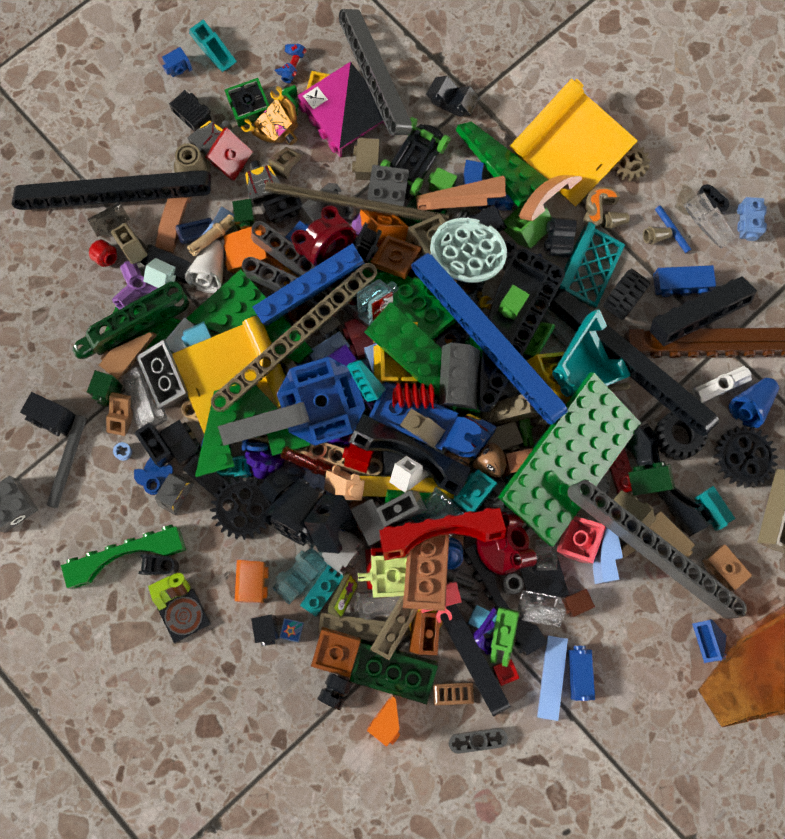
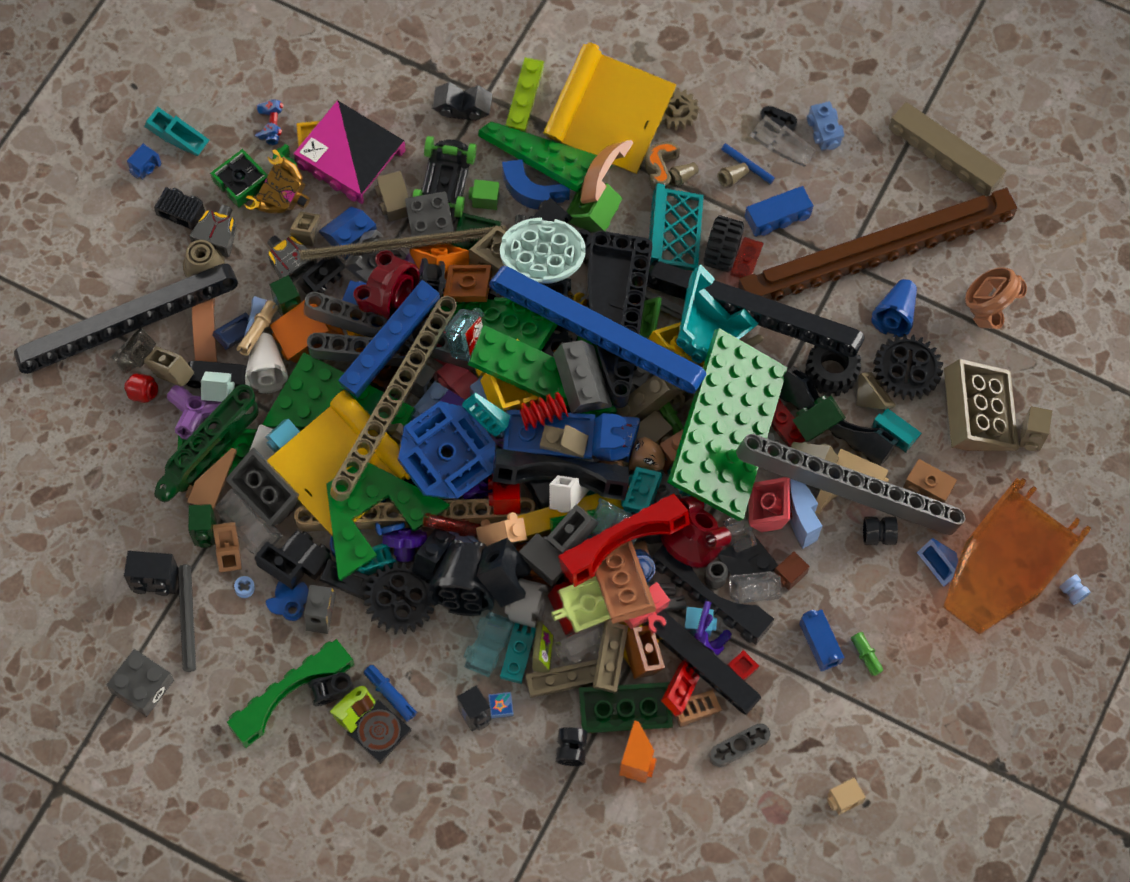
camera: 20 degrees left, 10 degrees down
(204, 586) = (389, 692): none -> blue axle
(229, 154) = (241, 239): plate -> none
(251, 581) = (439, 668): orange slope -> none
(263, 423) = (395, 494): dark grey beam -> none
(319, 173) = (347, 228): none -> blue slope
(335, 652) = (556, 706): dark orange plate -> none
(375, 72) = (368, 102): dark grey beam -> none
(444, 676) = (680, 689): none -> red hinge
(463, 196) = (514, 200): nougat wedge -> none
(504, 634) = (726, 624): bright green hinge -> none
(508, 107) = (525, 94): none -> lime plate
(513, 302) = (609, 287): bright green brick -> none
(550, 823) = (845, 796): none -> tan brick
(552, 678) = (793, 656): light blue tile -> none
(560, 237) = (632, 209): black brick -> none
(616, 700) = (867, 653): none -> bright green axle
(641, 312) = (746, 258): none -> clear red plate
(670, 596) = (877, 530): none -> black wheel
(702, 310) = (808, 234): black brick -> none
(705, 470) = (871, 394): none -> dark tan slope
(731, 380) = (865, 295): white piece -> none

